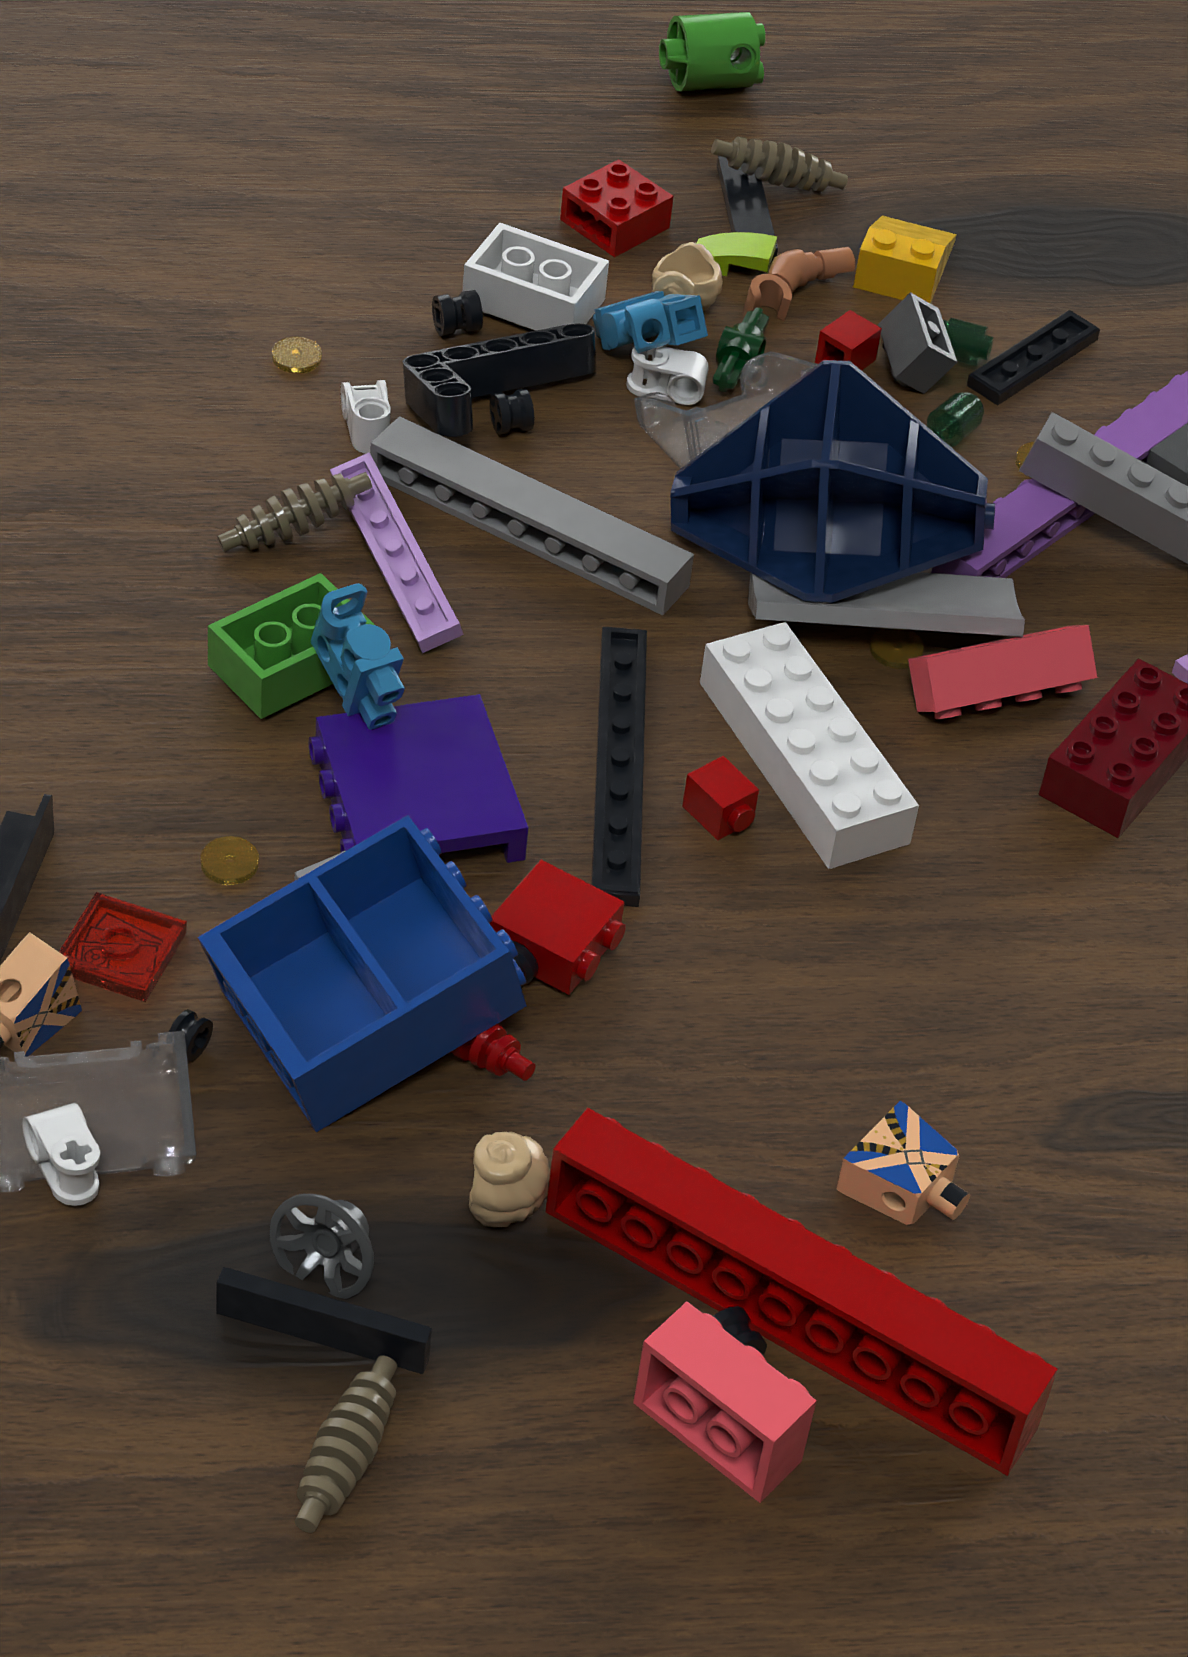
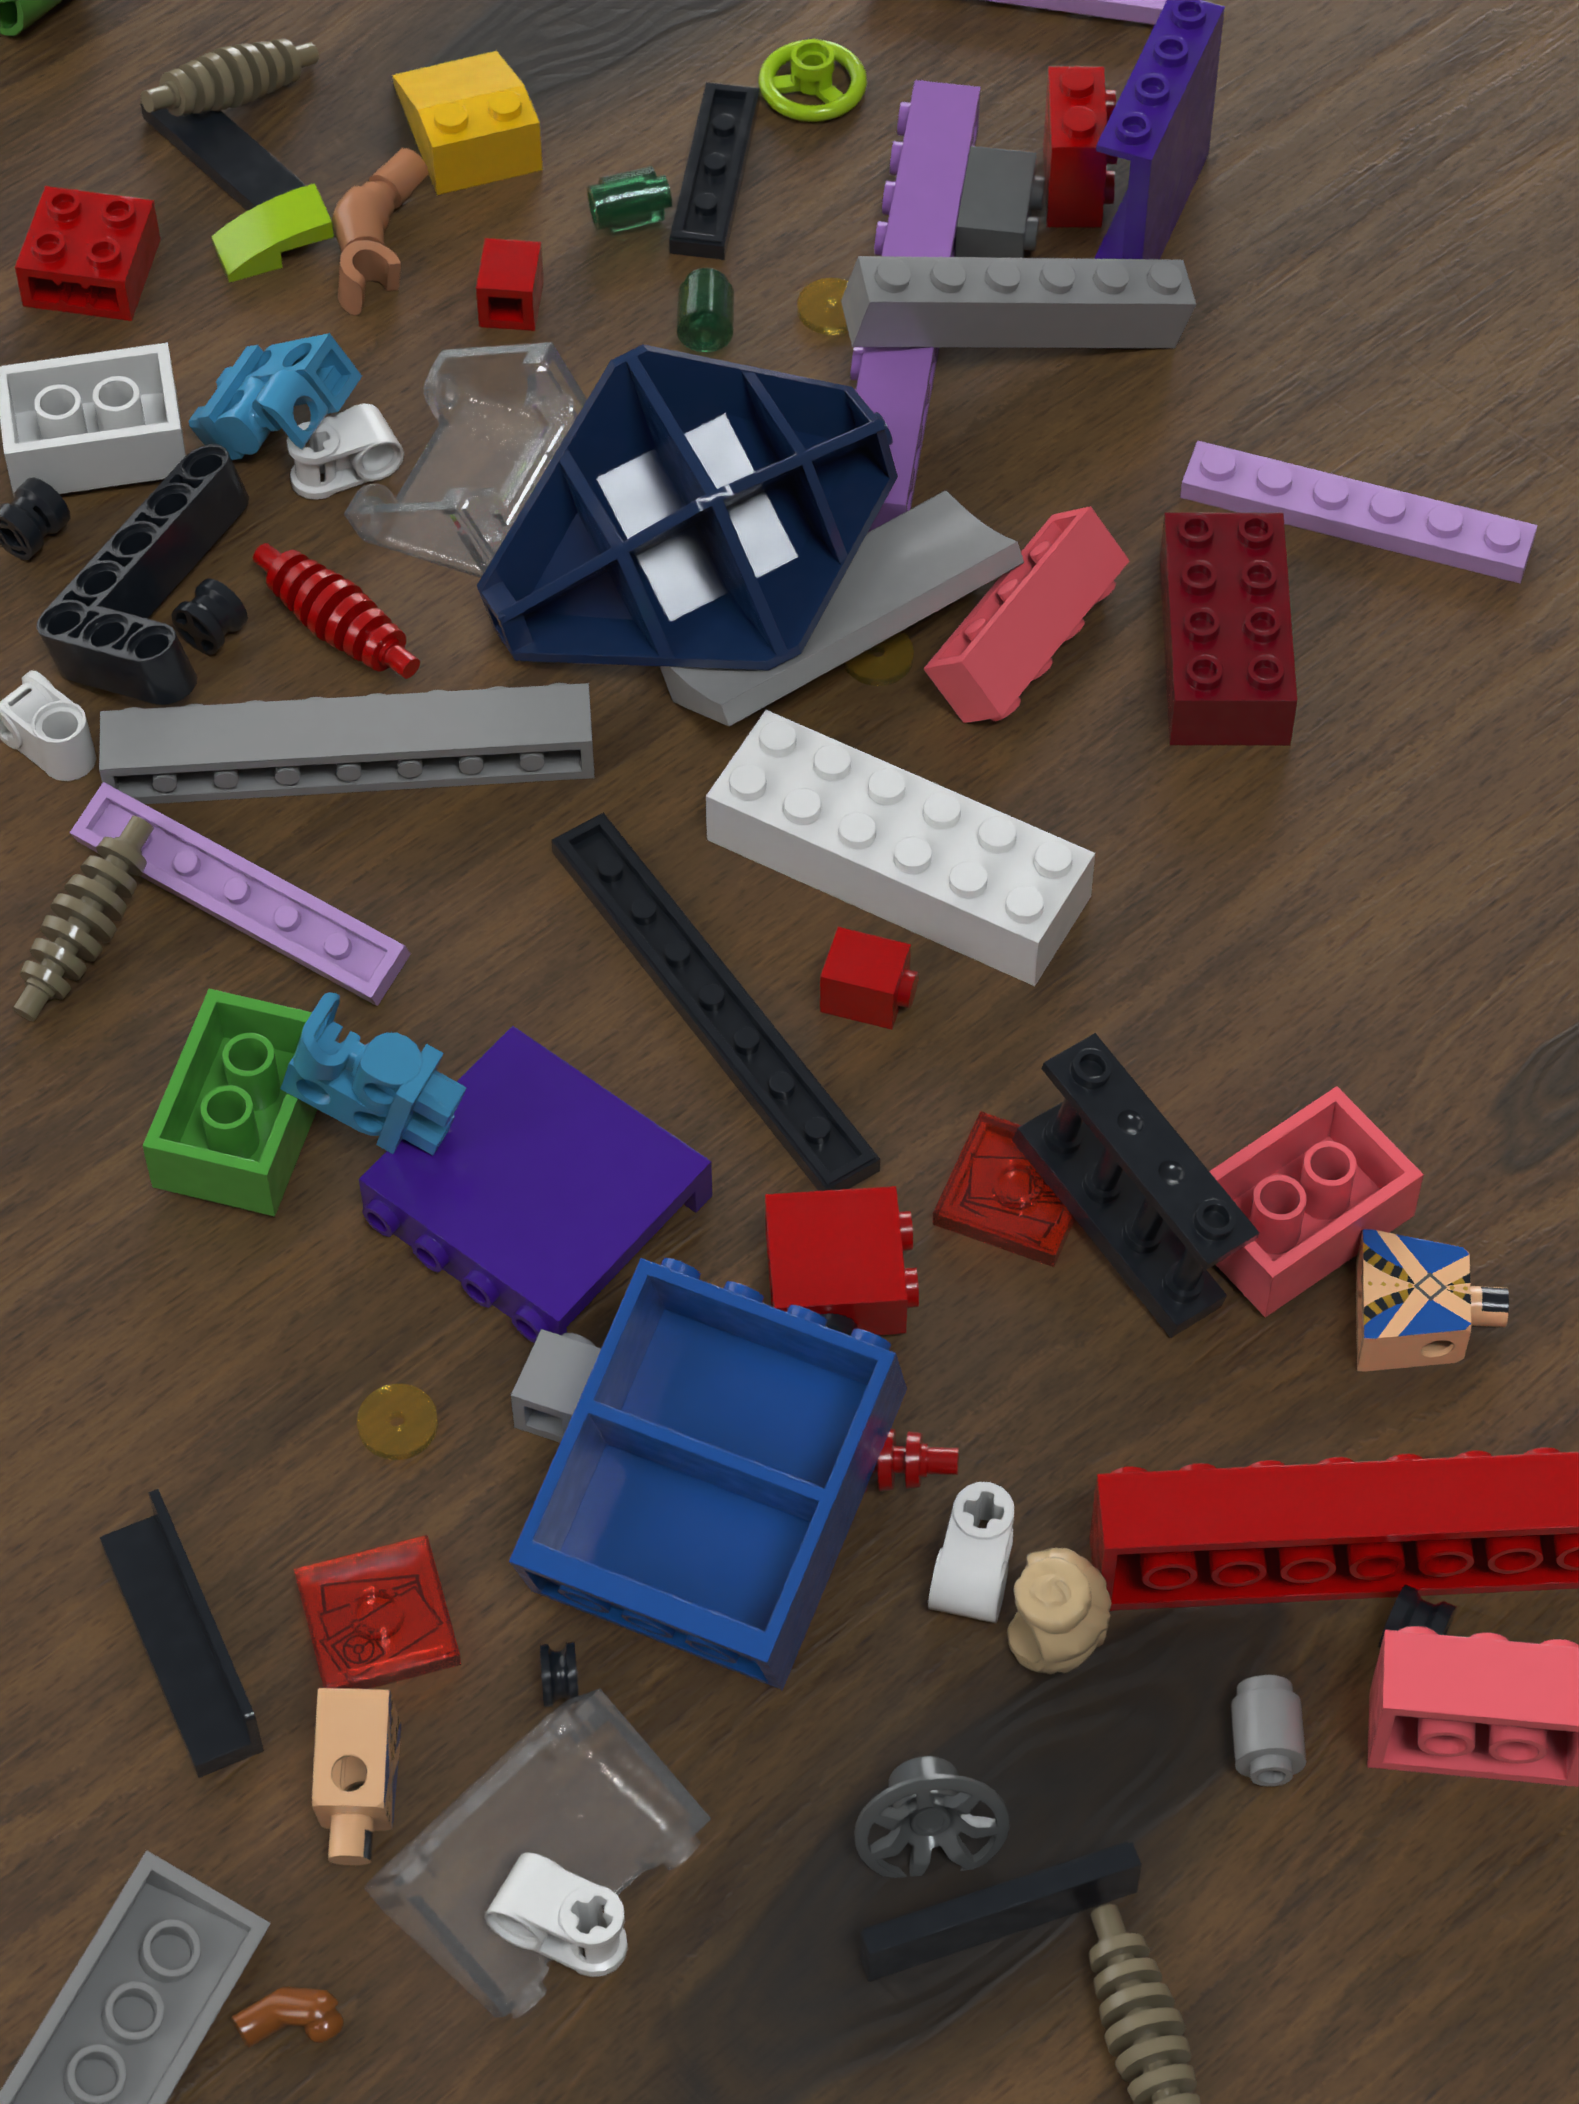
camera: 30 degrees left, 10 degrees up
(503, 1110) = (974, 1560): none -> white piece
(582, 1334) = (1268, 1730): none -> light grey brick
(587, 447) = (336, 610): none -> red piece
(689, 272) = (260, 303): tan hair -> none
(711, 962) = (1002, 1197): none -> clear red tile
(738, 346) = (394, 365): dark green axle -> none
(768, 984) = (1134, 1185): none -> black fence
(867, 1059) = (1310, 1197): none -> coral brick
(917, 343) = (590, 237): dark grey brick -> none
(1141, 333) = (811, 74): none -> lime piece

